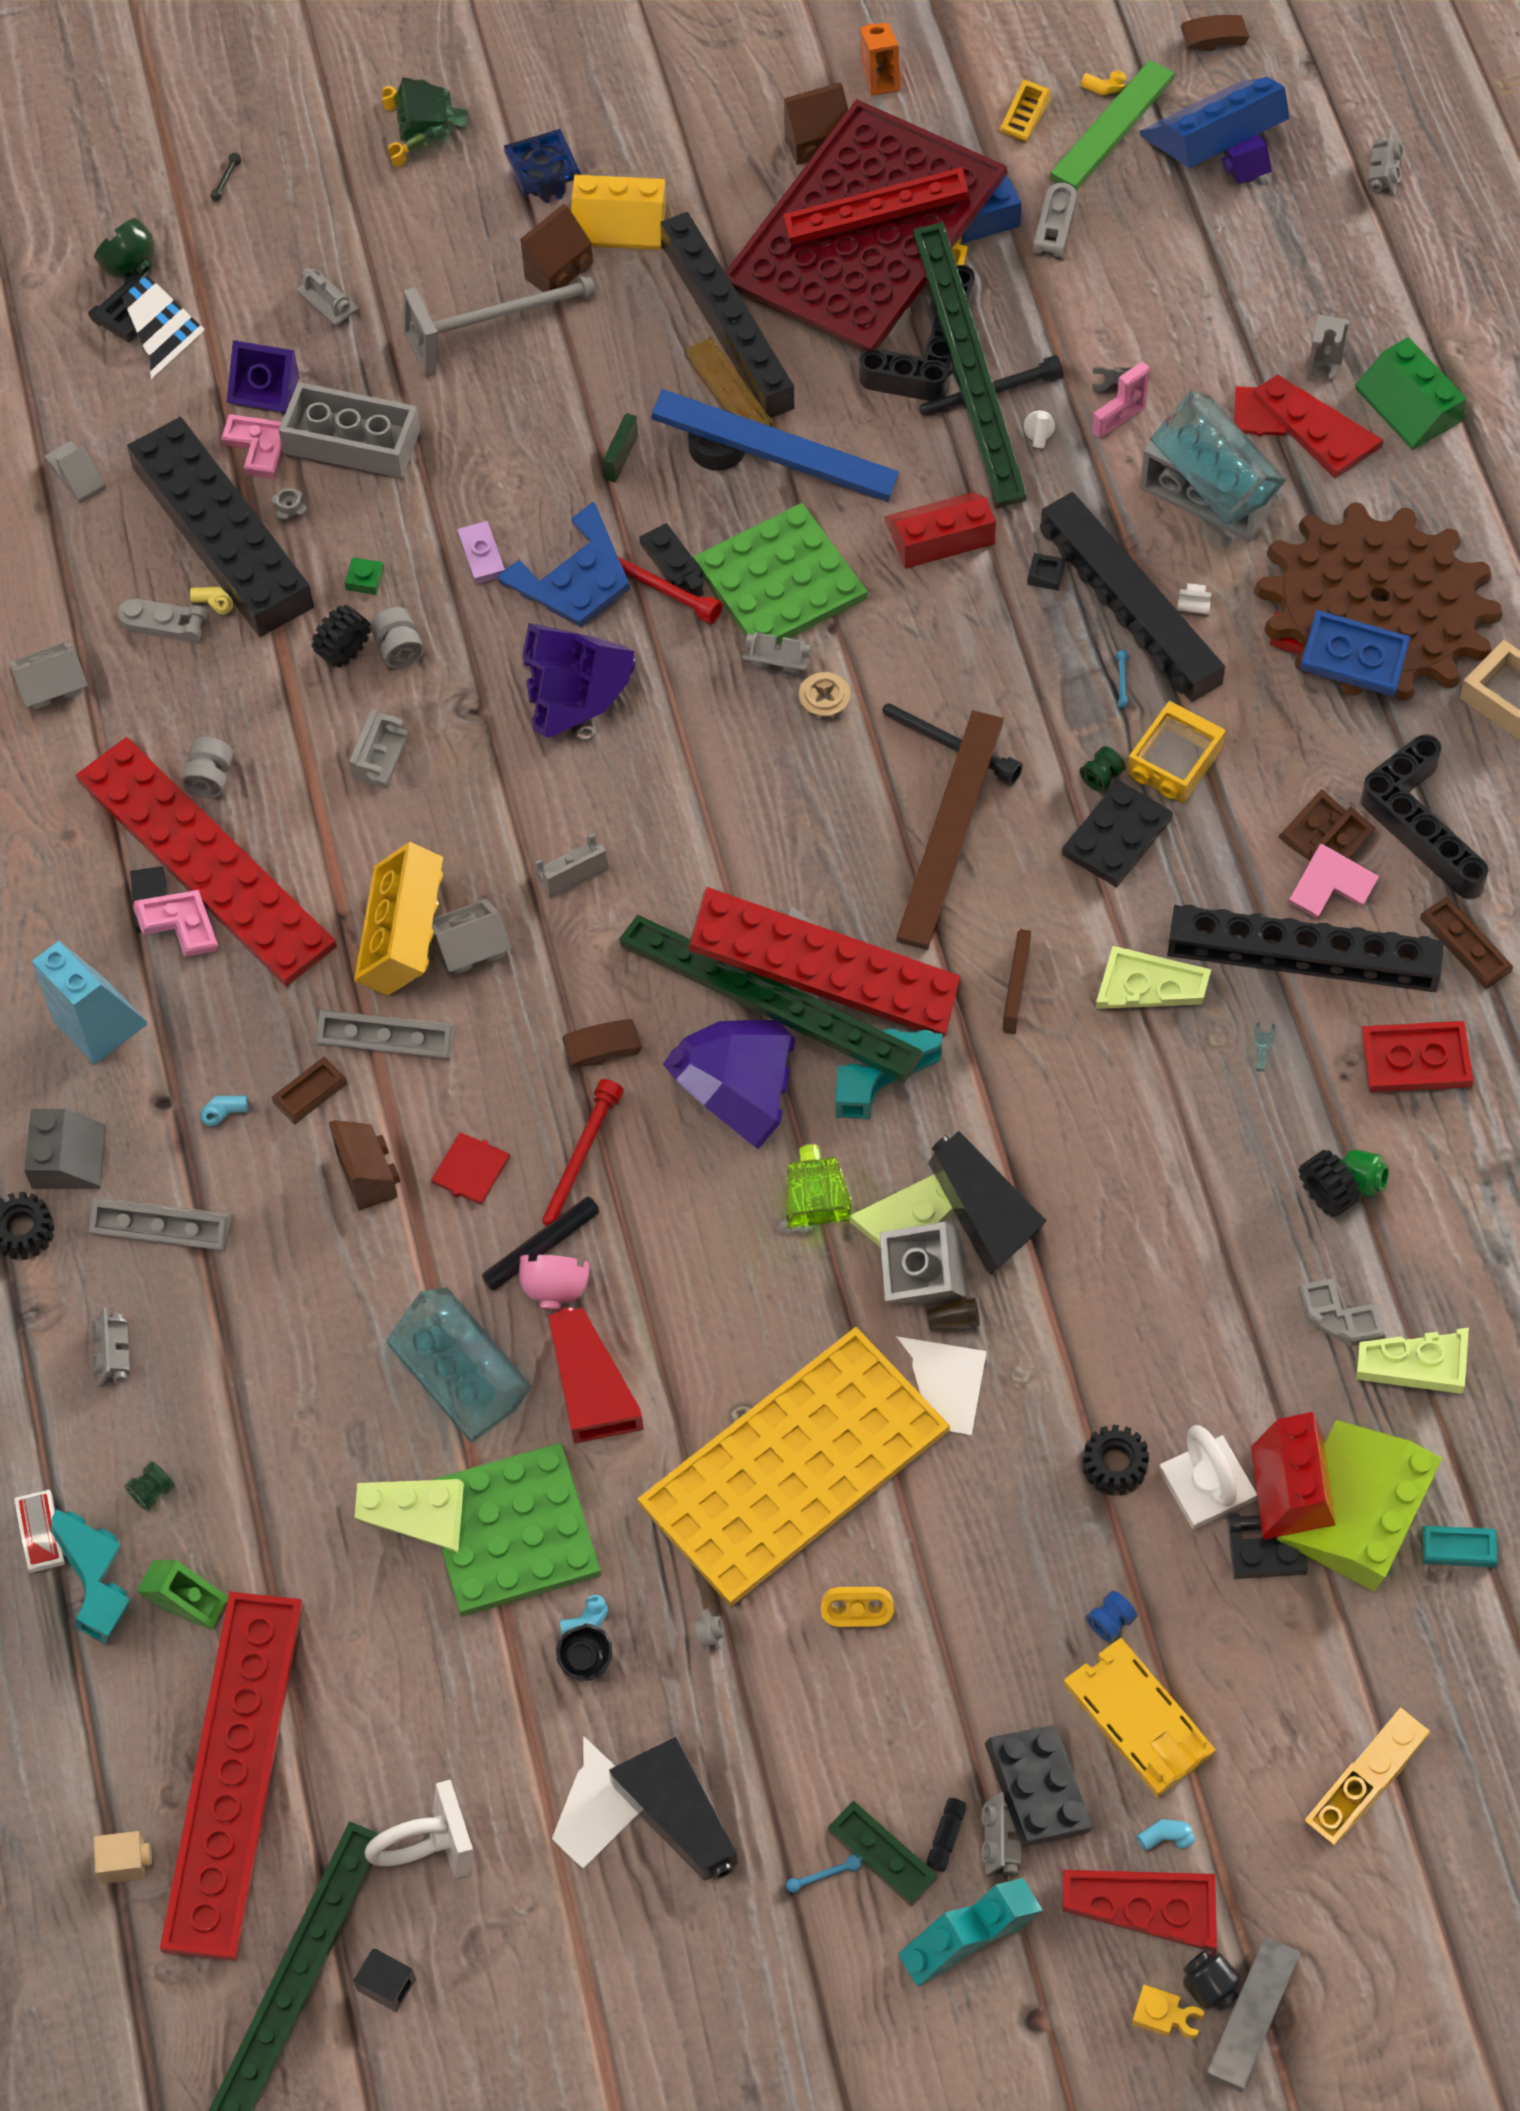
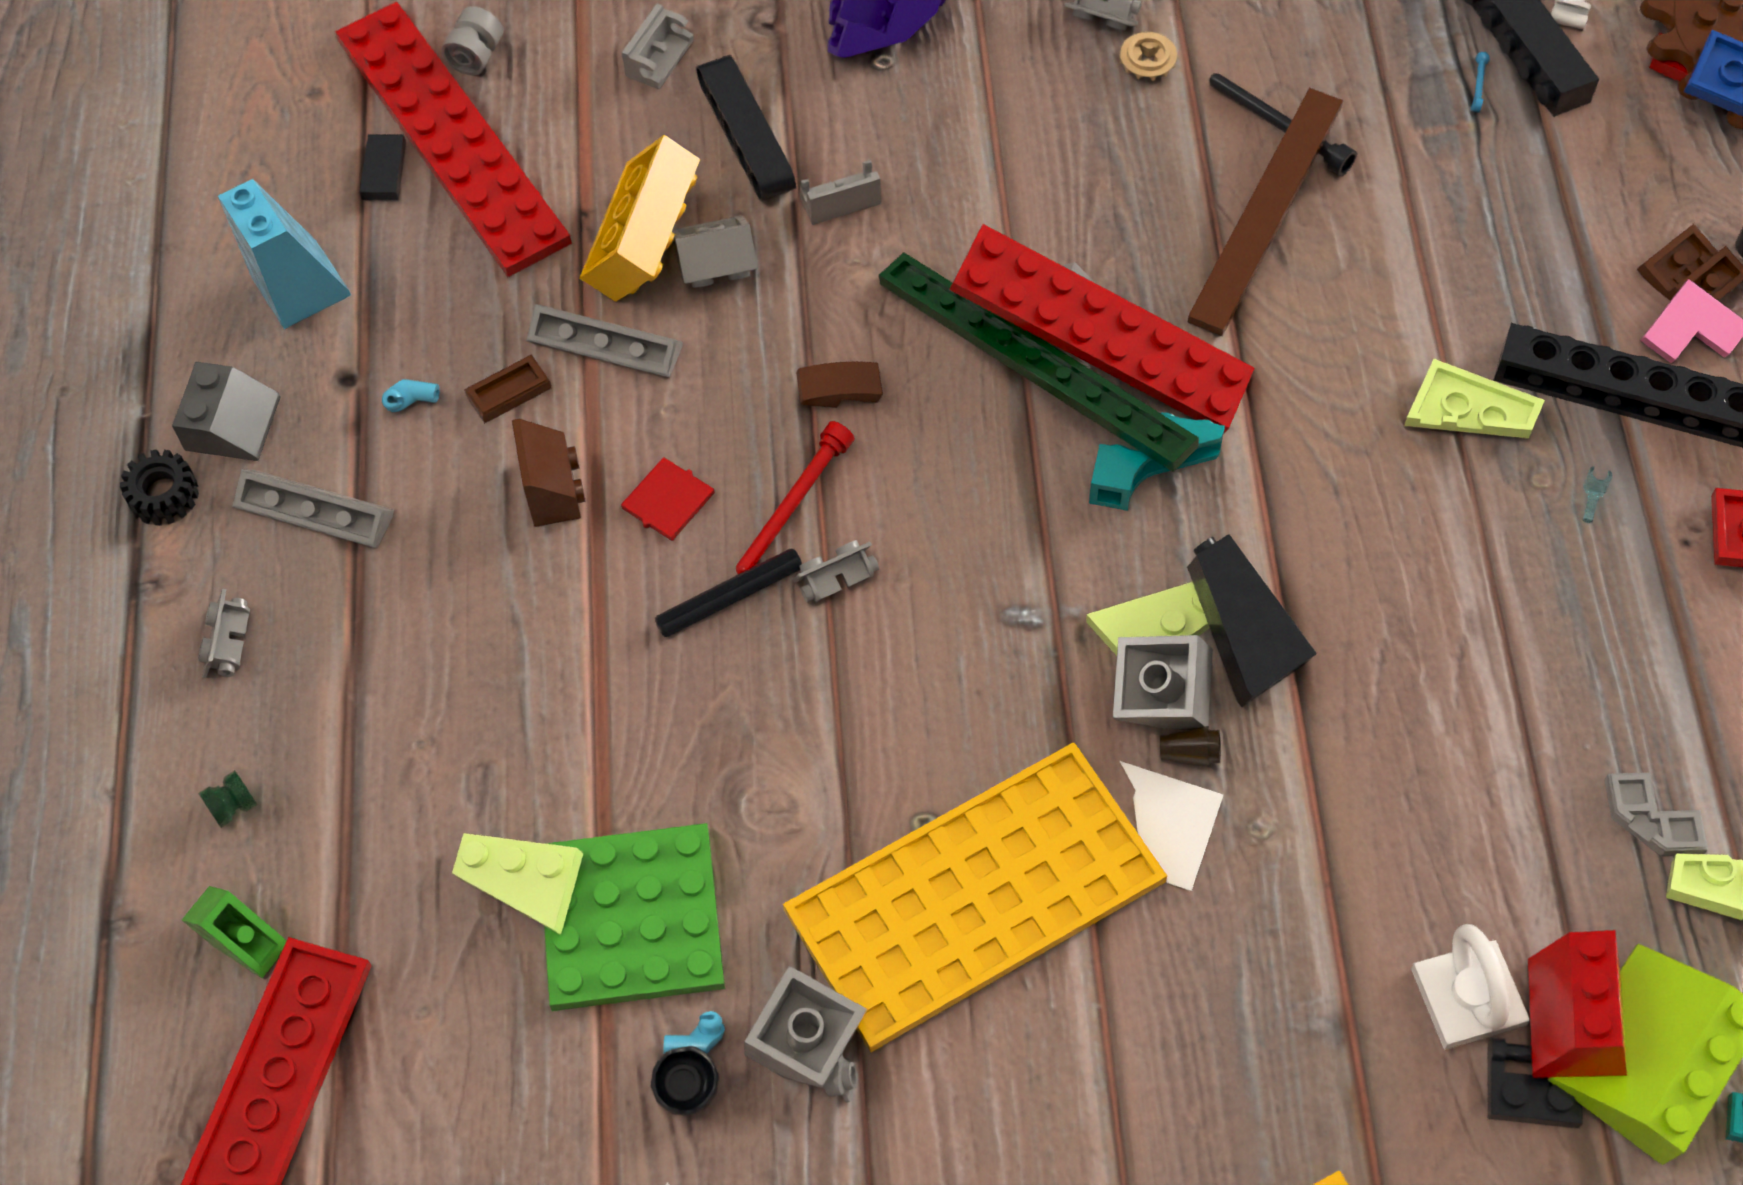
camera: 10 degrees right, 0 degrees up
(35, 1524) = (92, 831): slope -> none
(92, 1557) = (141, 872): teal arch -> none
(179, 912) = (412, 184): bright pink tile -> none
(458, 1362) = (607, 713): clear light blue slope -> none
(474, 815) = (746, 128): none -> black beam
(553, 1280) = (733, 634): bright pink cylinder -> none
(592, 1386) = (755, 764): red slope -> none
(617, 1217) = (850, 563): none -> light grey hinge
(674, 1596) = (803, 1029): none -> light grey slope
(737, 1073) = (983, 436): dark purple brick -> none
(816, 1190) = (1052, 580): clear neon green torso -> none
(857, 1609) = (1021, 1080): yellow plate -> none
(1016, 981) = (1318, 382): reddish brown tile -> none
(1098, 773) = (1442, 172): dark green wheel -> none
(1111, 1616) = (1333, 1141): blue wheel -> none
(1117, 833) = (1453, 241): black plate -> none
(1122, 1441) = (1366, 925): black tyre -> none
(1176, 752) = (1531, 163): window -> none
(1329, 1183) = (1660, 660): black tyre -> none
(1368, 1171) = (1698, 655): green head -> none

